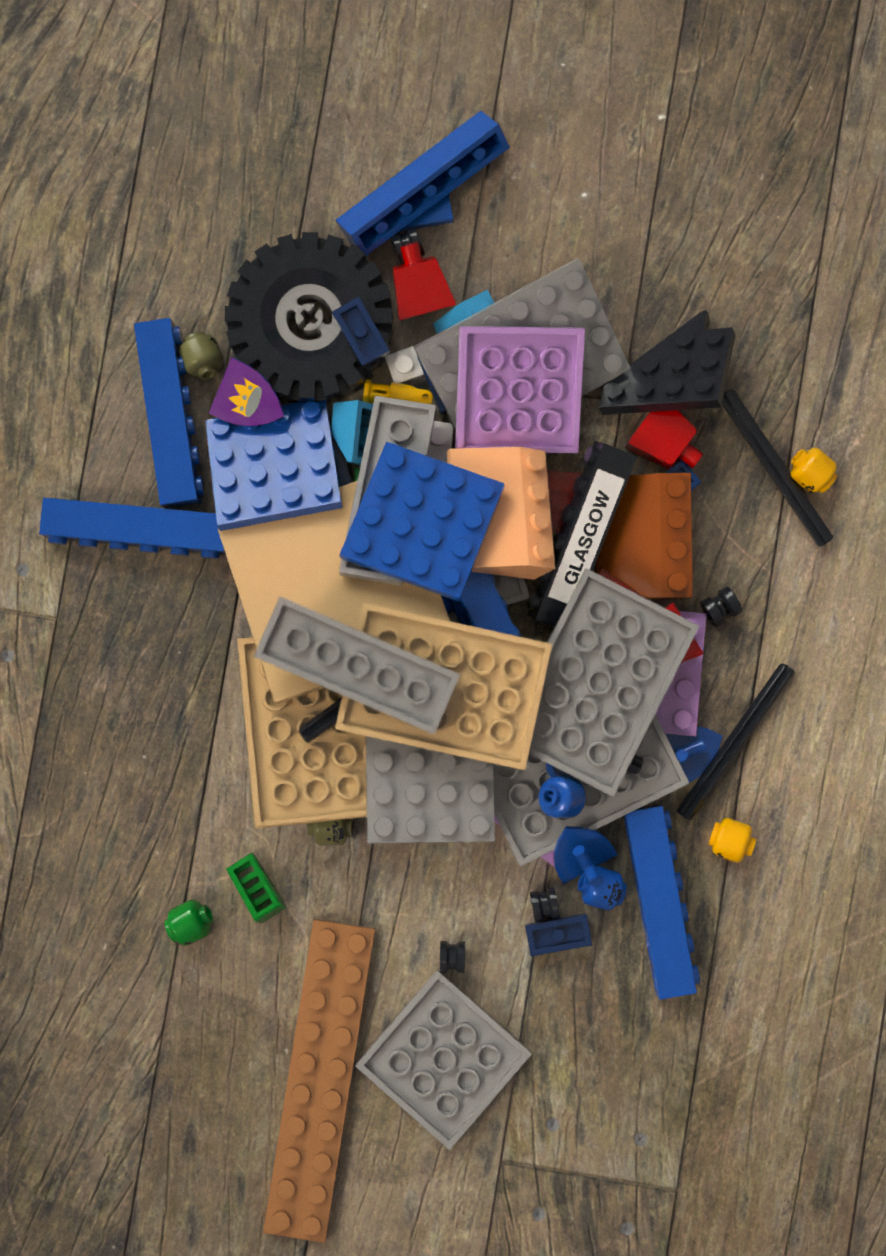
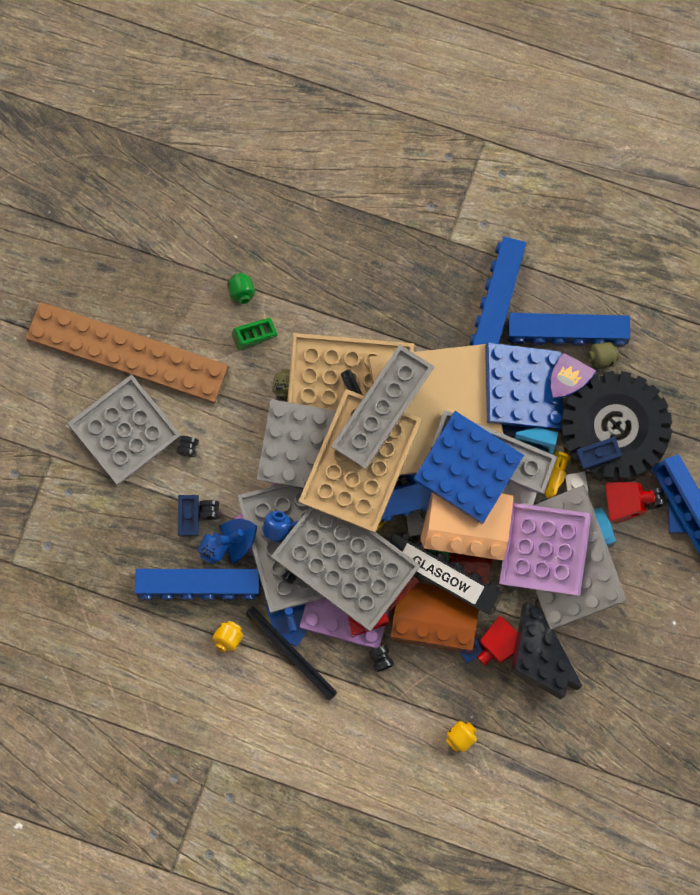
camera: 95 degrees right, 10 degrees down
(776, 468) = (468, 713): black axle -> none

